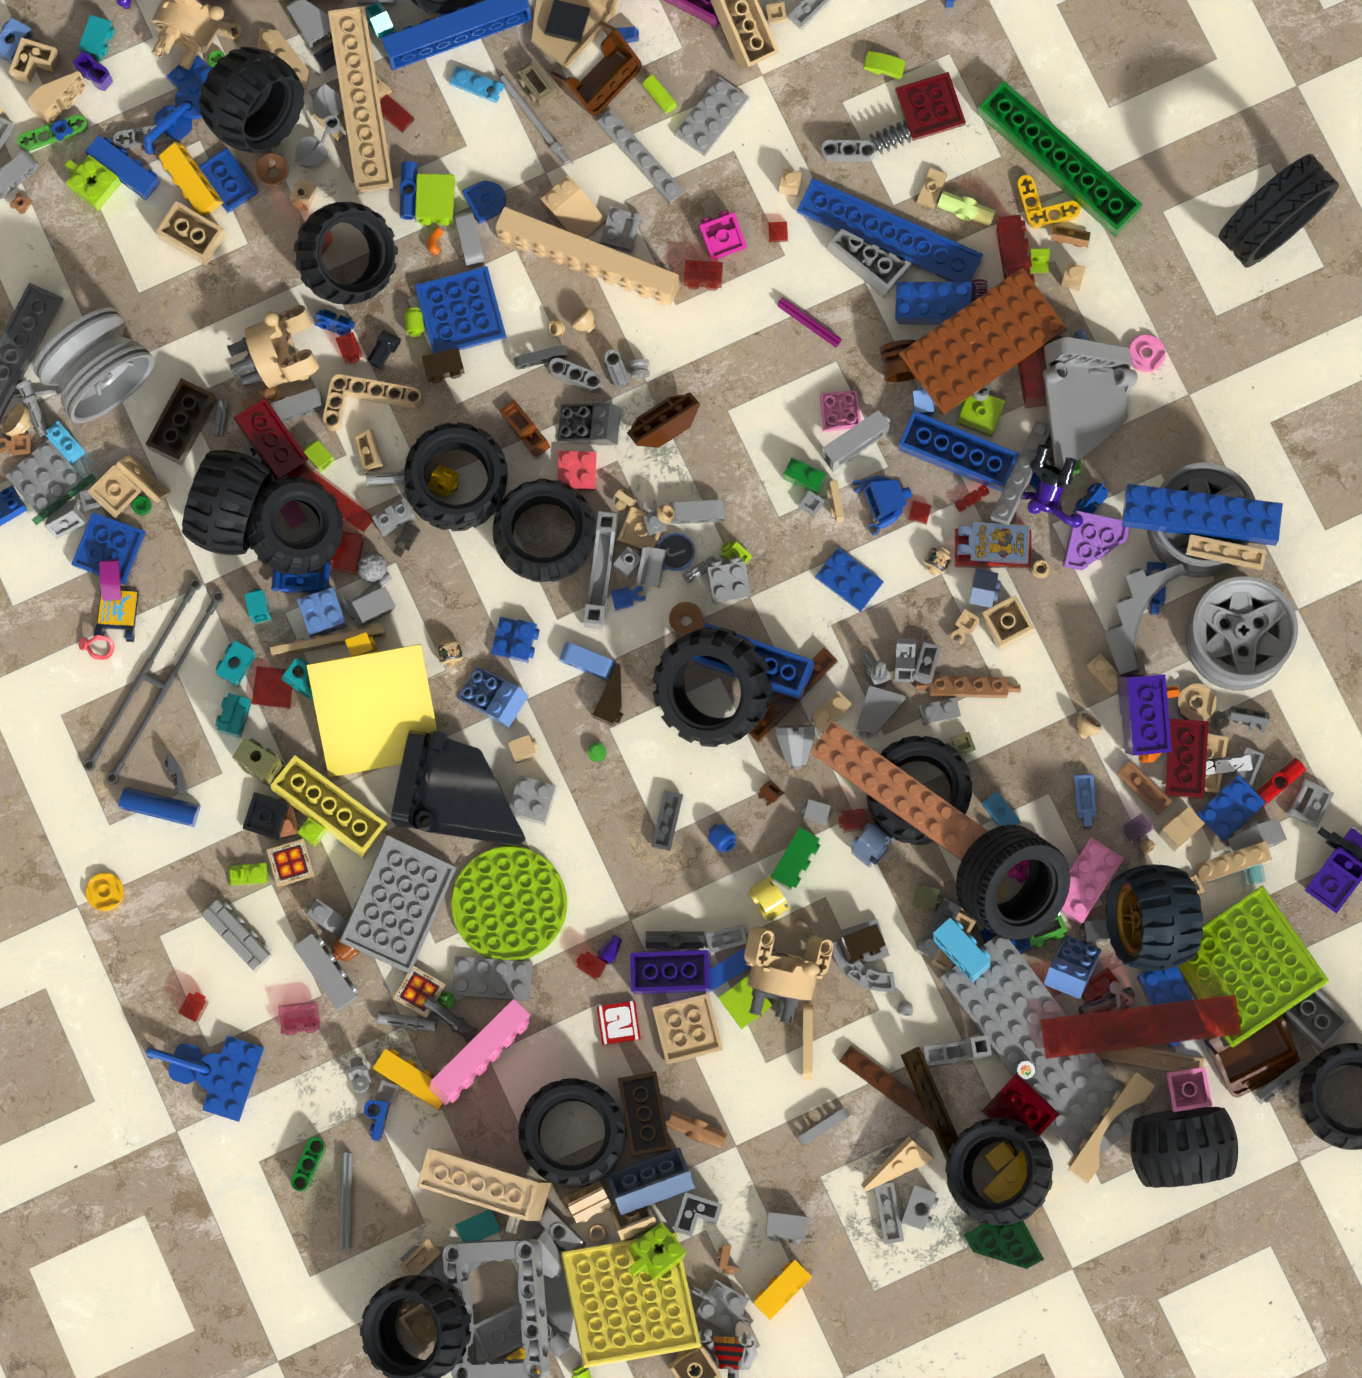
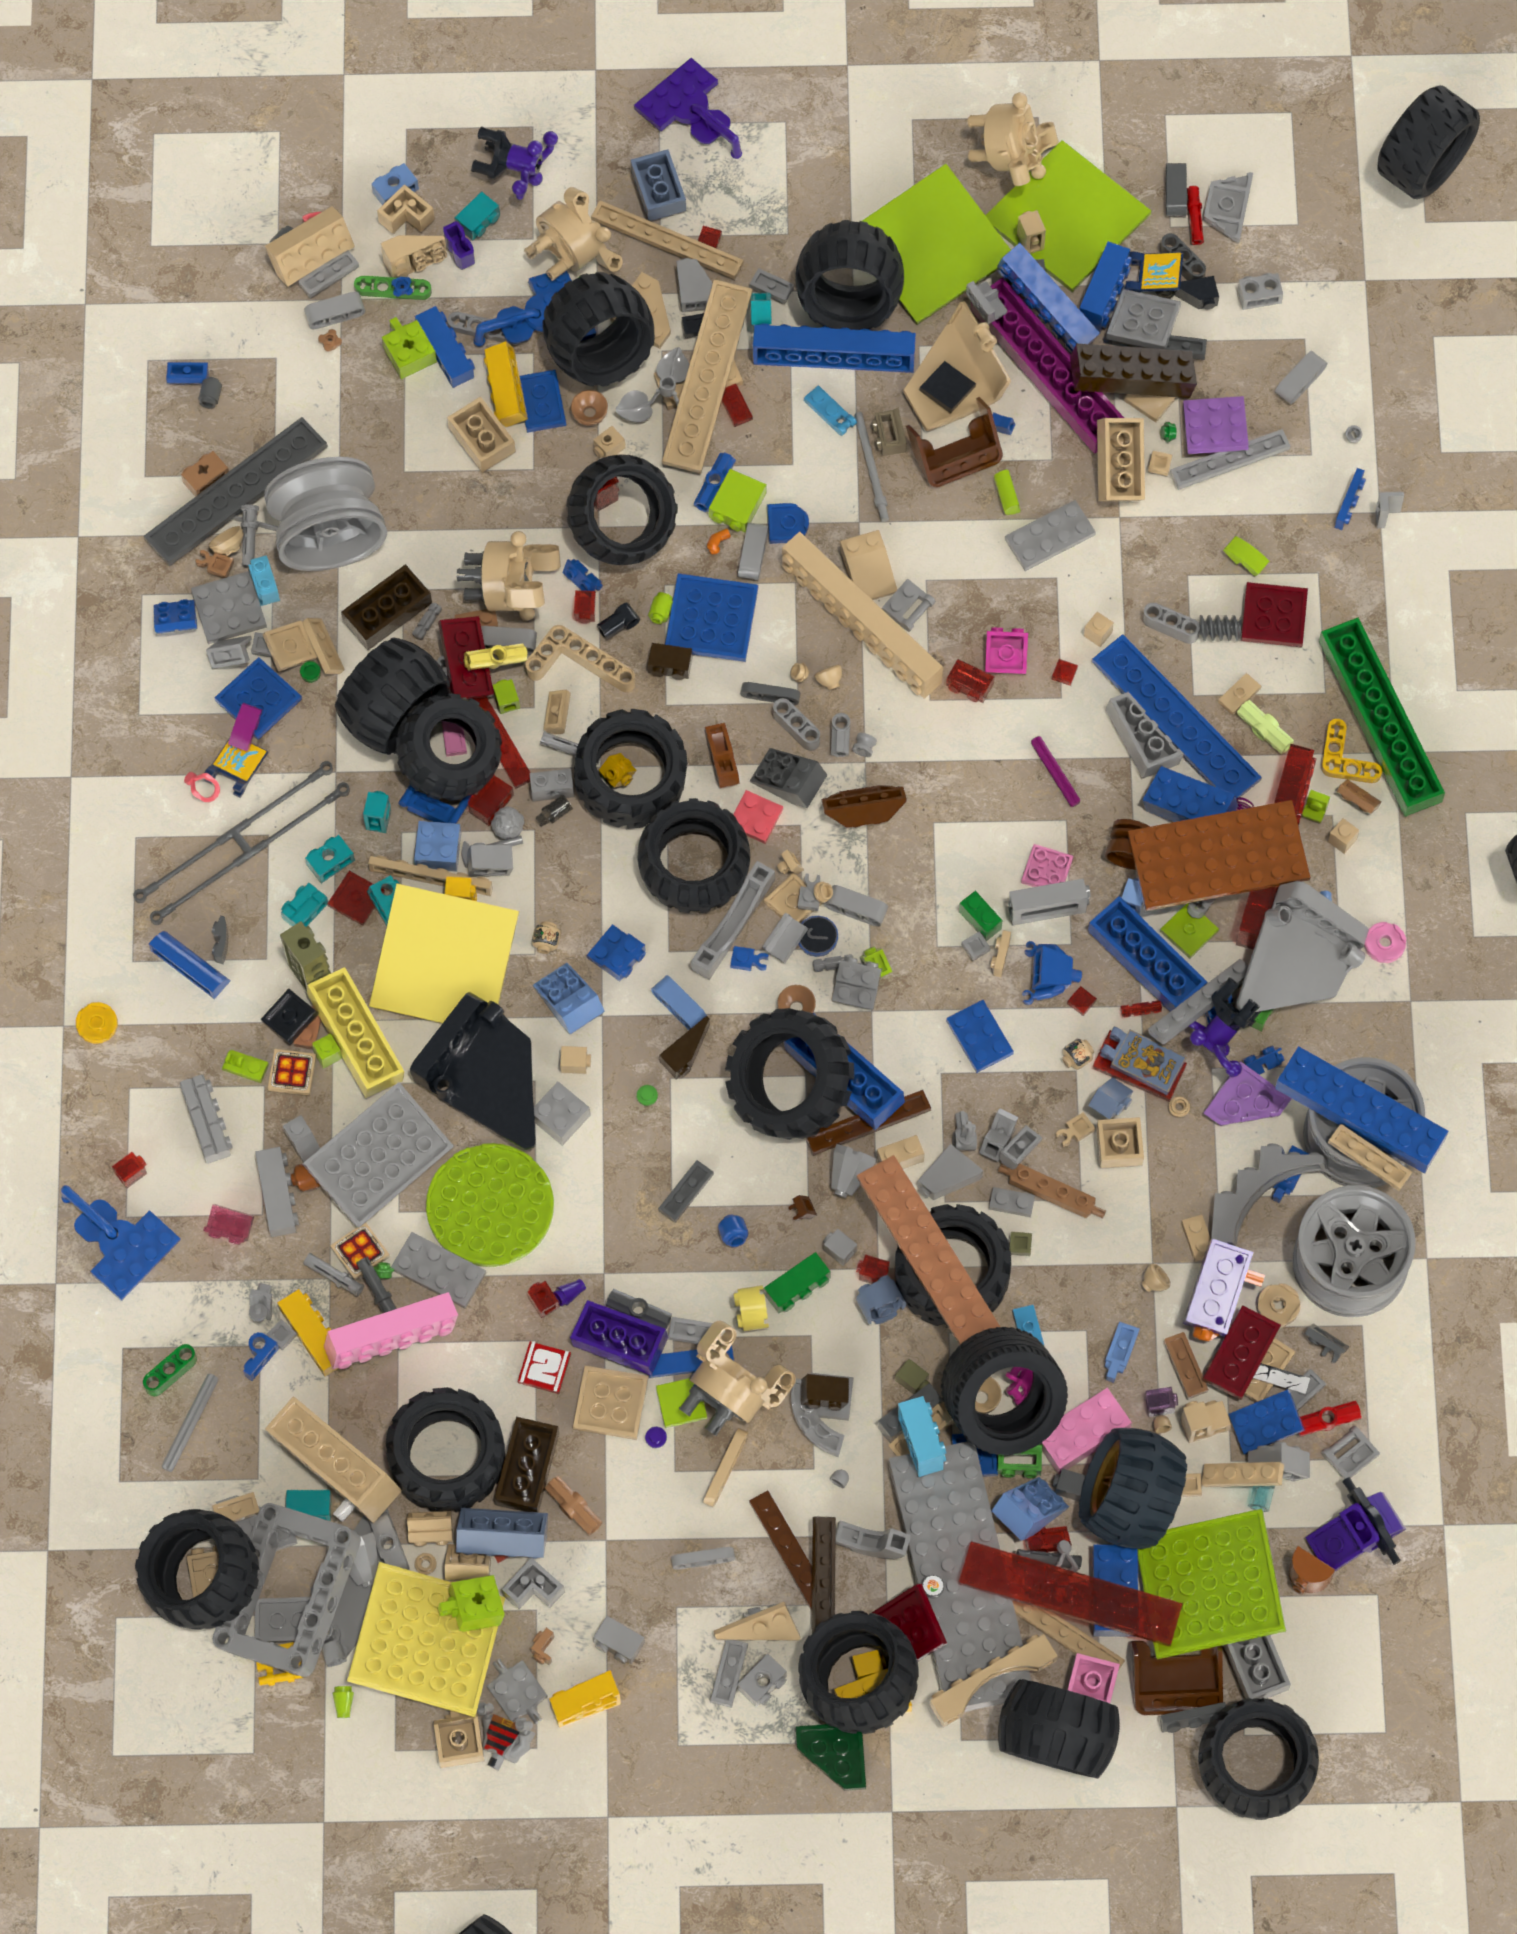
camera: 20 degrees right, 10 degrees down
(63, 499) = (236, 633): clear green bar -> none
(303, 421) = (484, 658): none -> light yellow piece
(628, 562) = (763, 924): light grey brick -> none
(640, 156) = (960, 545): light grey plate -> none
(738, 1041) = (656, 1437): none -> dark purple plate
(1215, 720) = (1289, 1331): clear smoke plate -> none
(1321, 920) = (1309, 1573): none -> dark orange brick

